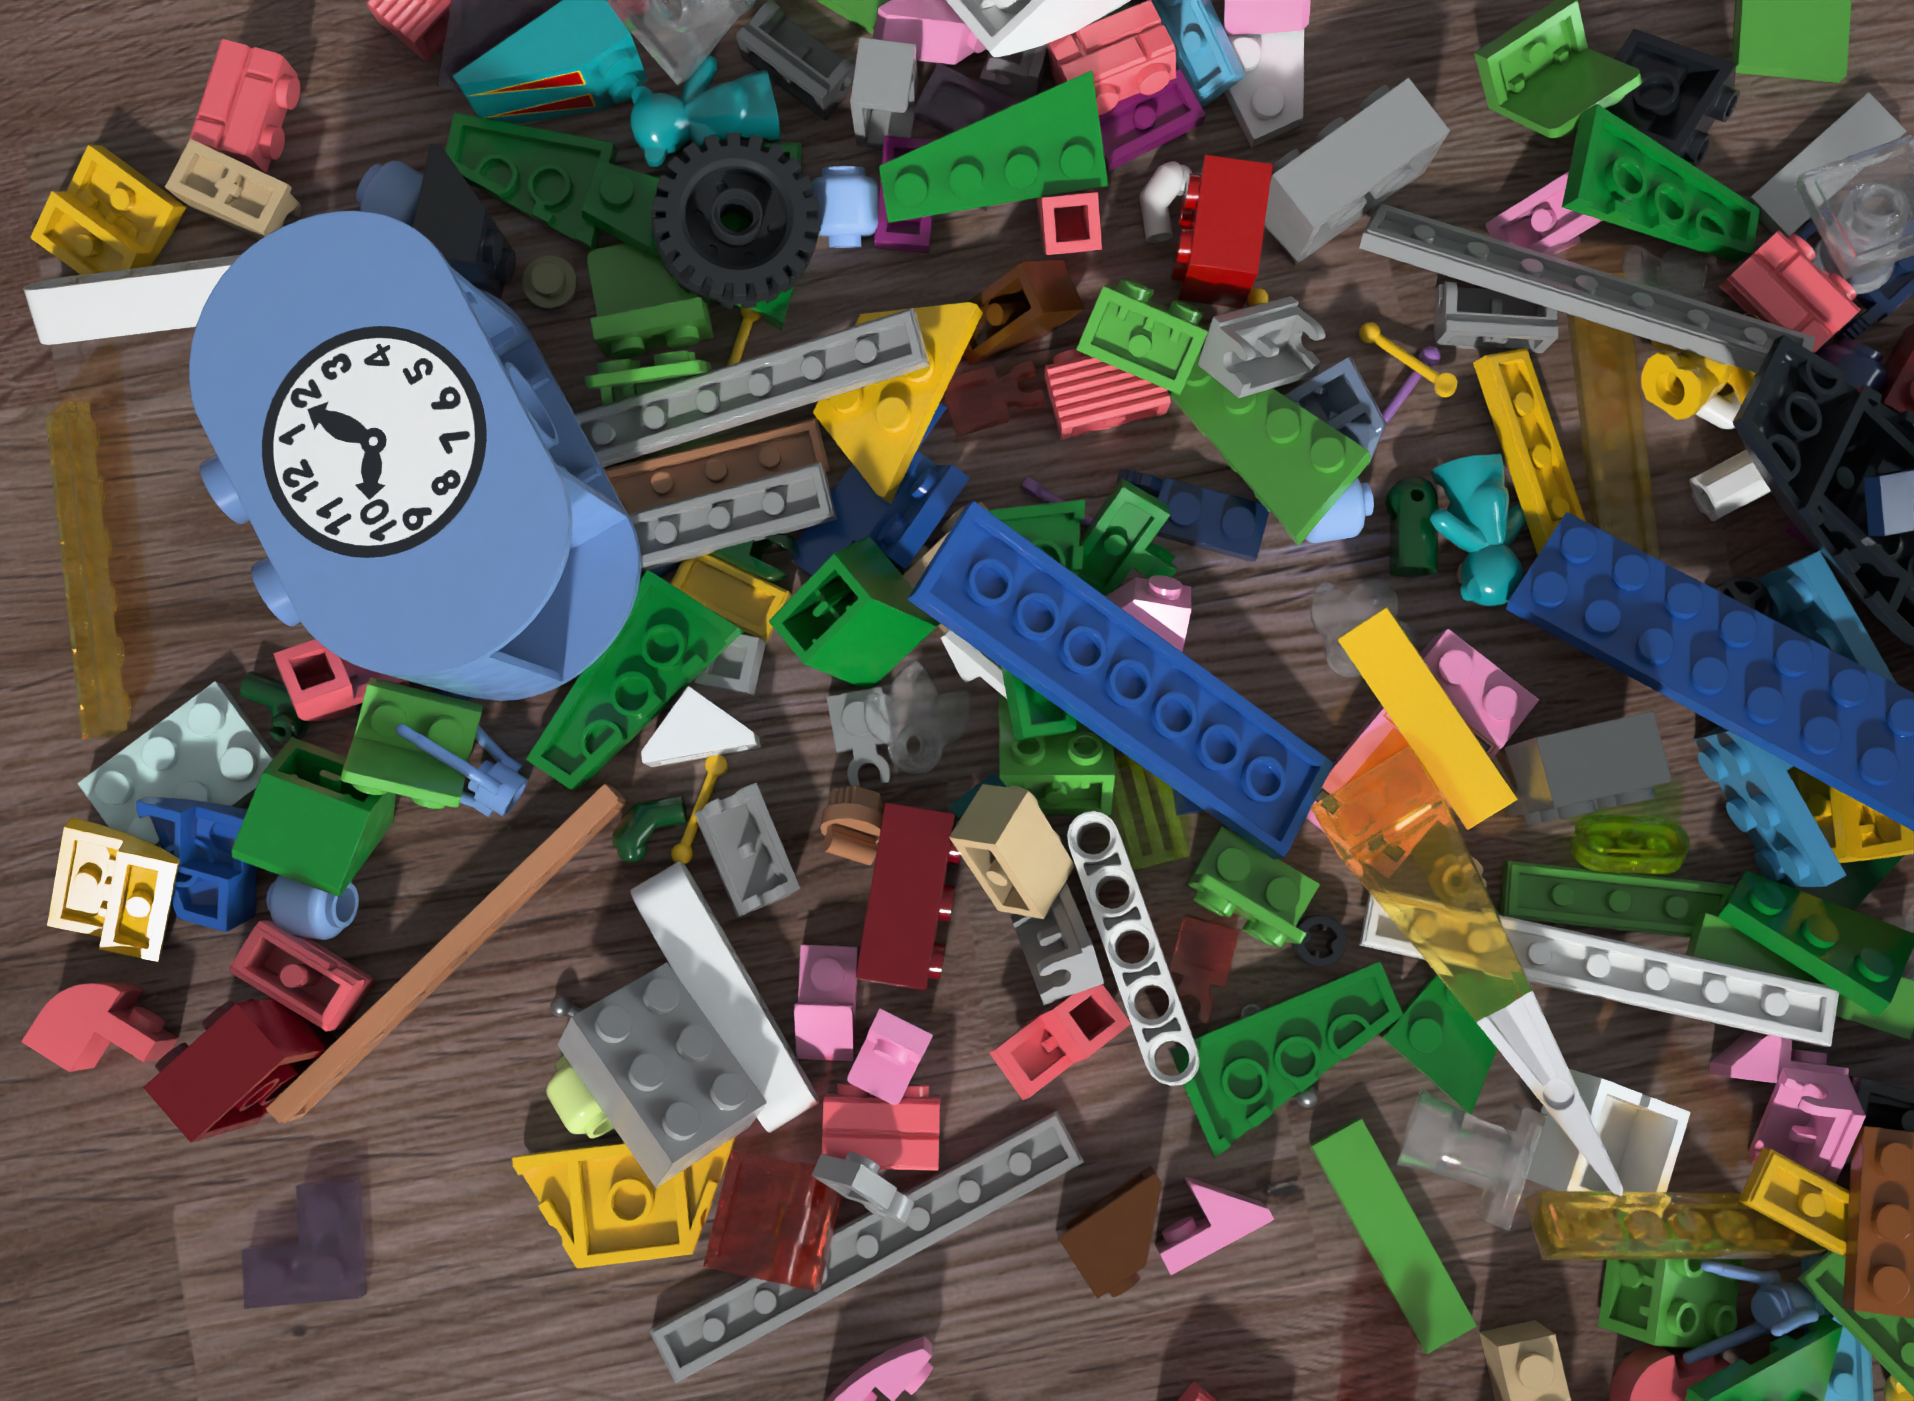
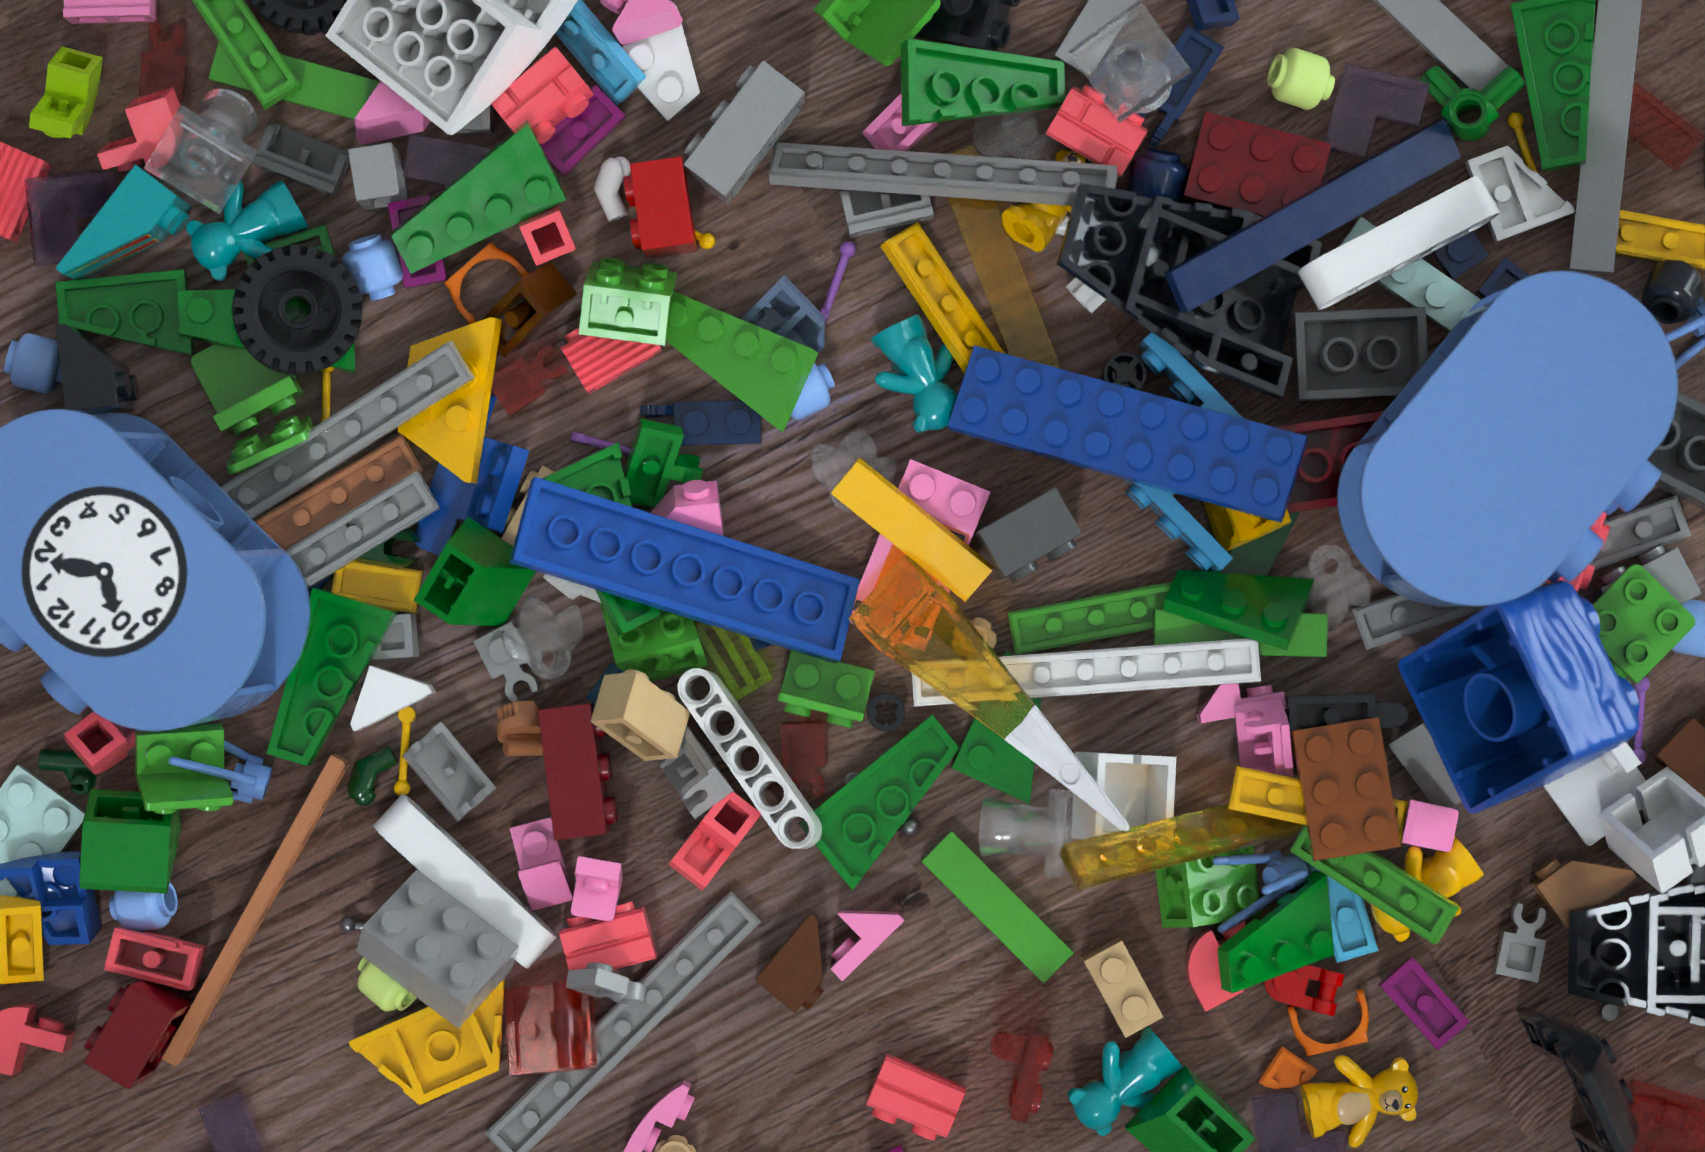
camera: 15 degrees left, 5 degrees up
(550, 282) = (168, 389): olive plate -> none
(985, 234) = (455, 281): none -> orange cap
(1260, 347) = (716, 288): light grey hinge -> none
(1411, 531) = (873, 400): dark green piece -> none
(1444, 383) = (862, 269): yellow hinge -> none
(1629, 844) = (1090, 574): clear neon green plate -> none

